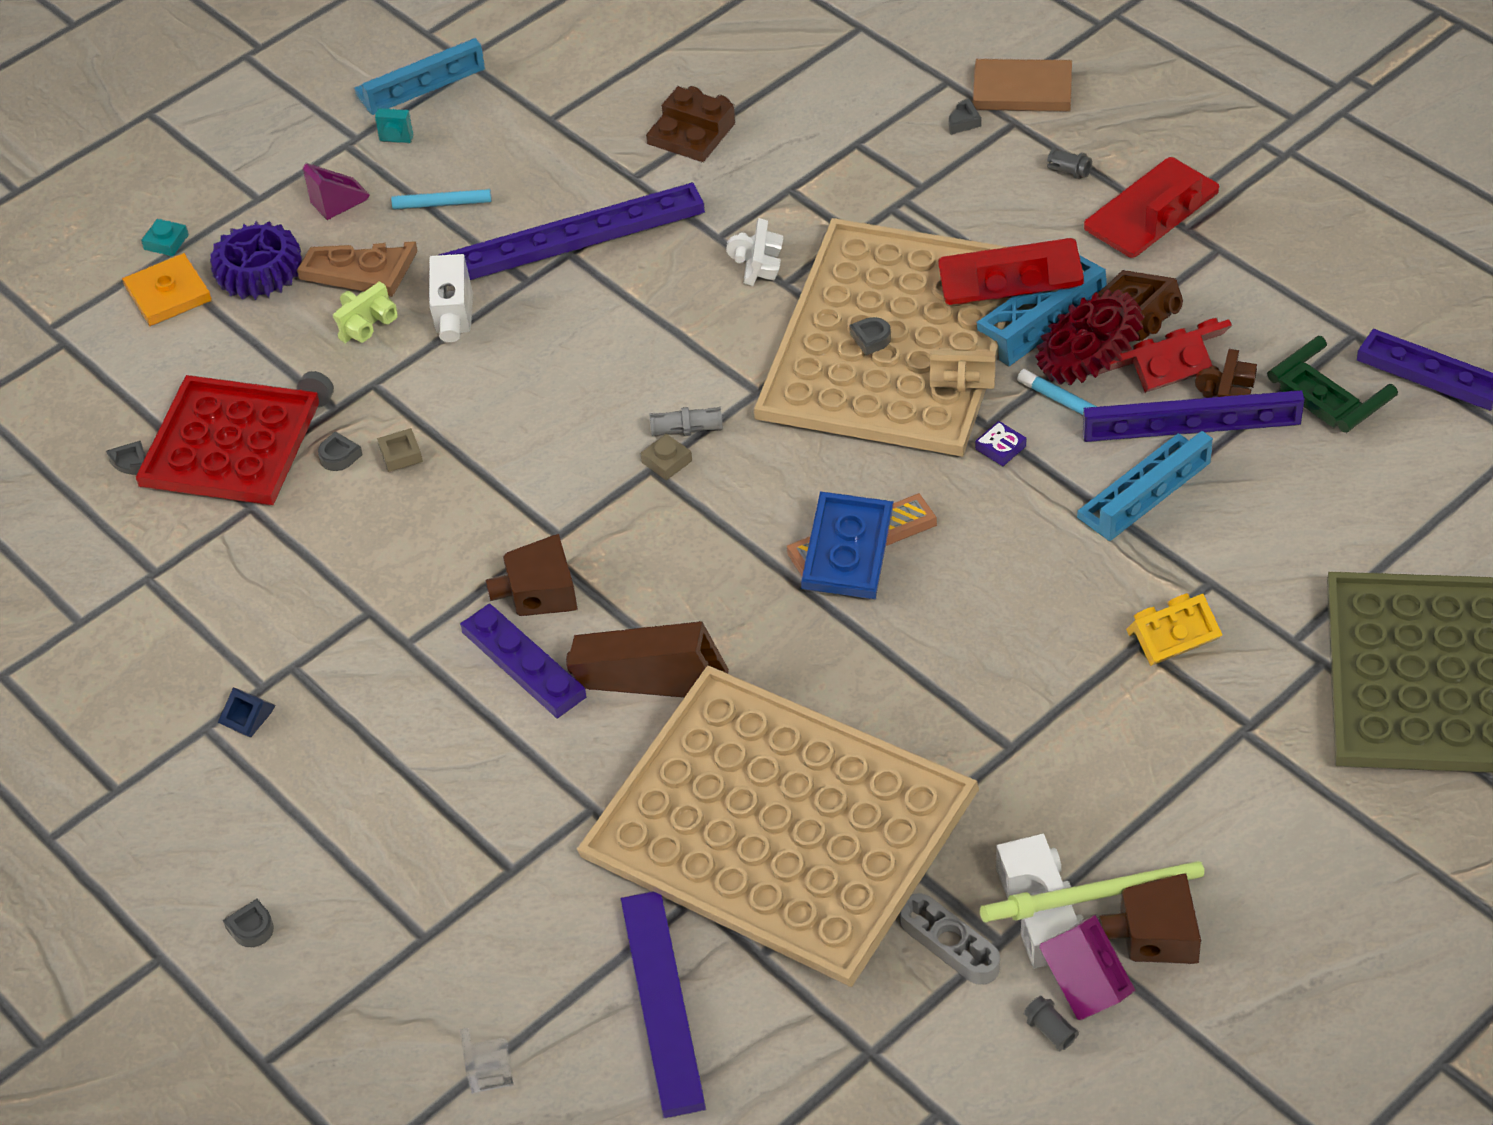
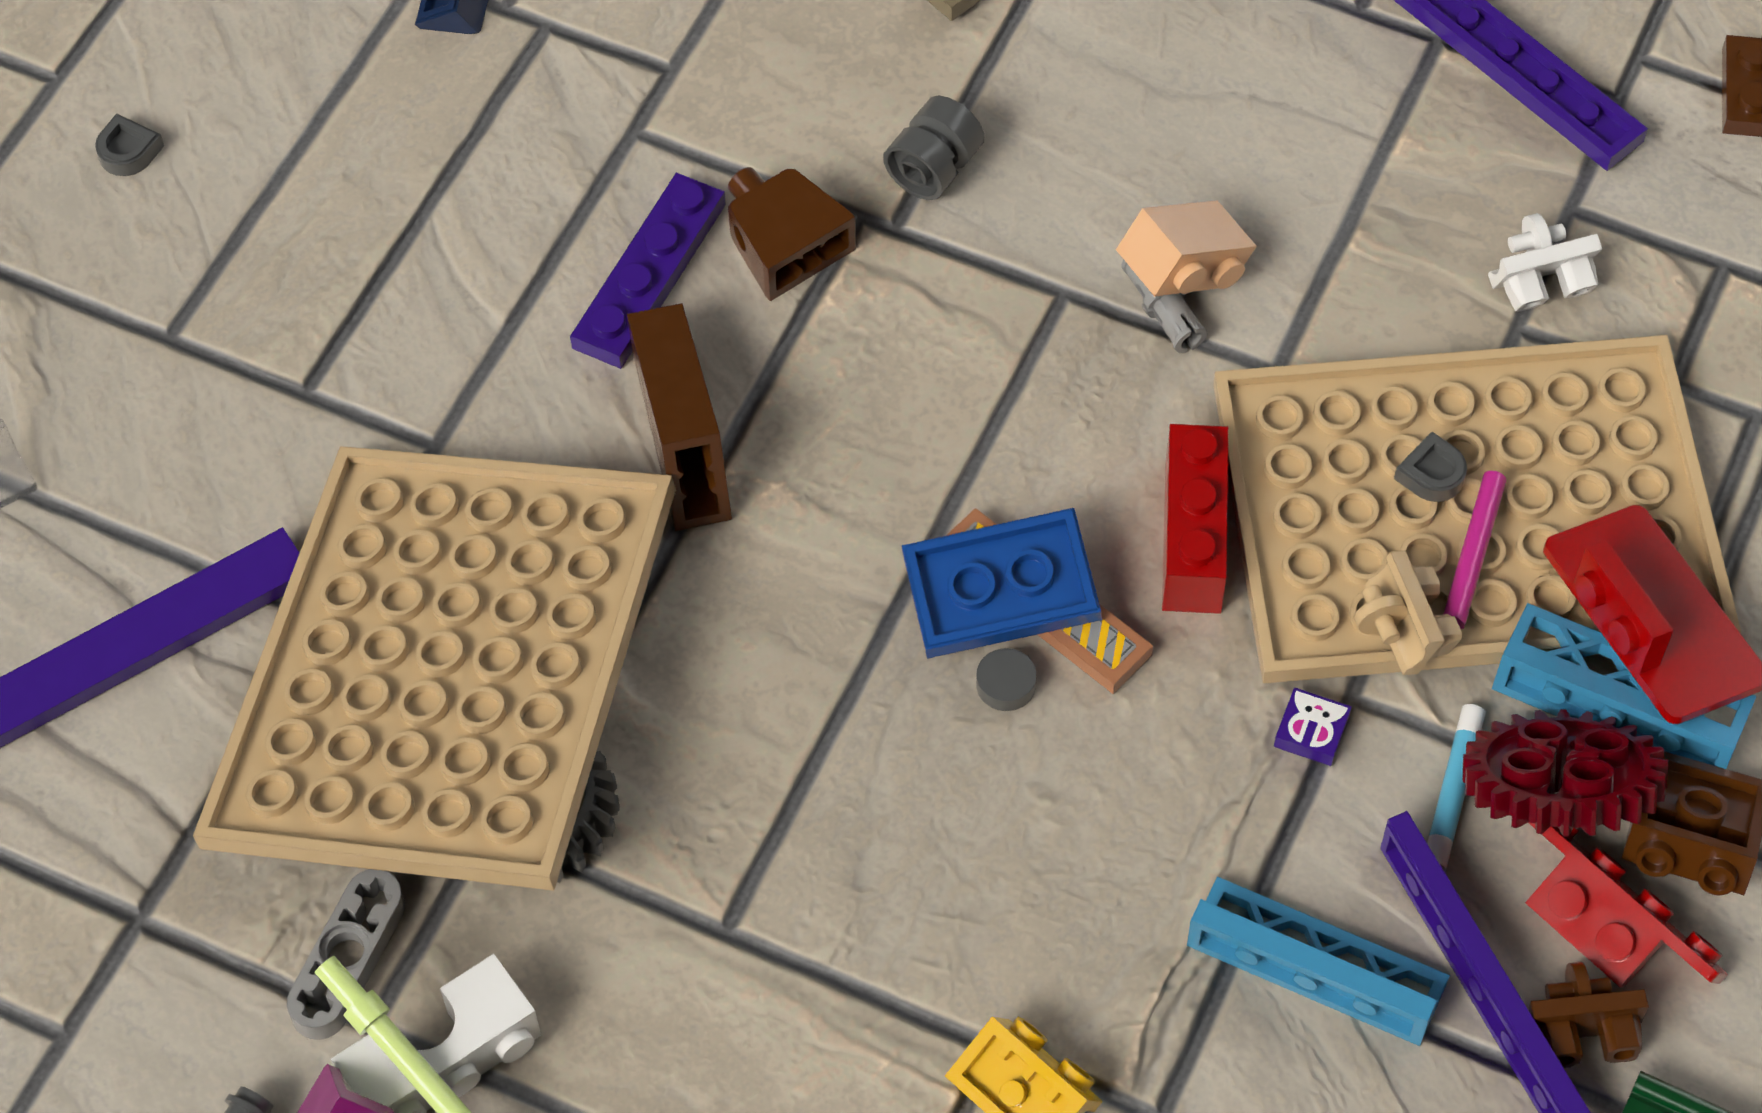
camera: 65 degrees right, 10 degrees up
(522, 489) = (933, 147): none -> dark grey wheel
(666, 456) = (1088, 300): dark tan plate -> none
(670, 390) = (1186, 248): none -> light nougat brick
(848, 446) = (1195, 519): none -> red brick
(907, 567) = (1006, 679): none -> dark grey tile
(925, 330) = (1475, 546): none -> dark pink bar

